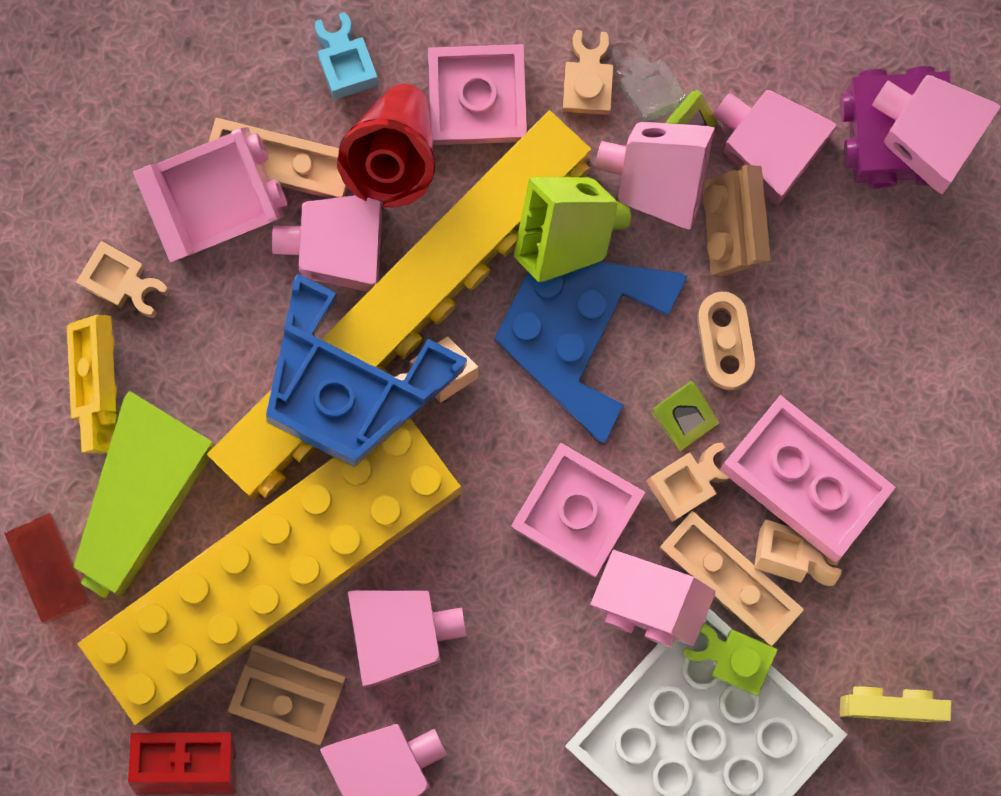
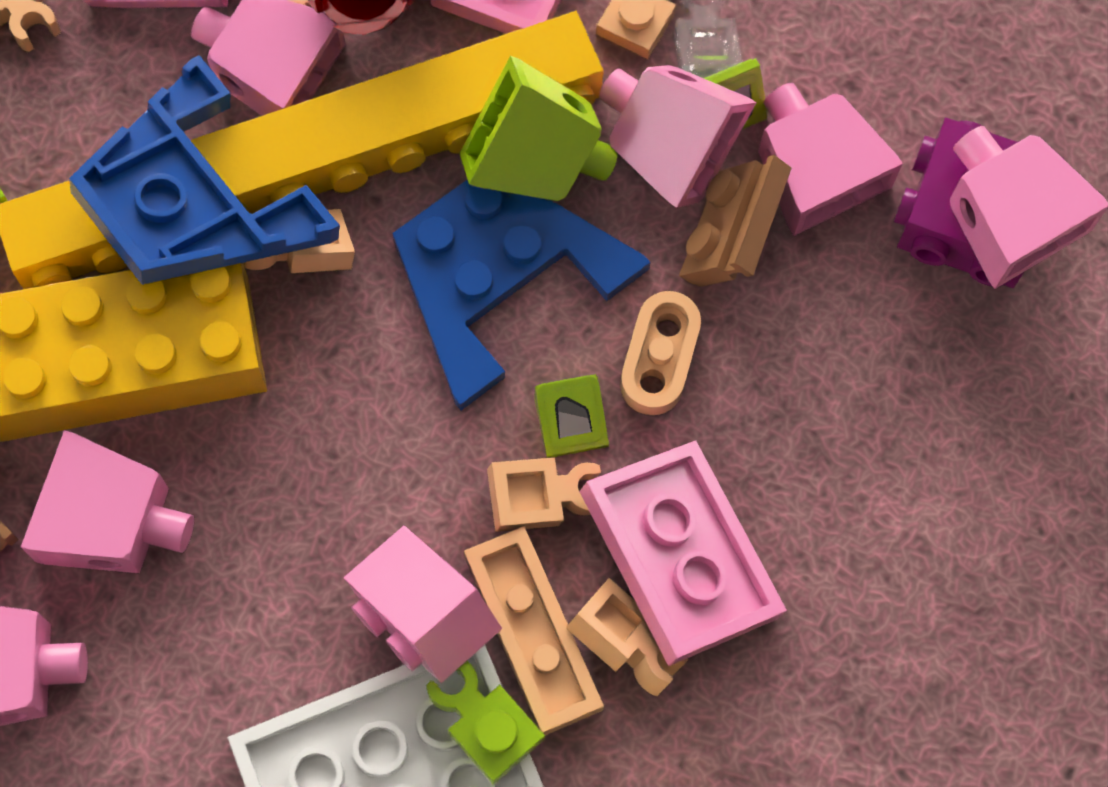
camera: 20 degrees right, 10 degrees down
(577, 510) = (389, 466): bright pink plate -> none

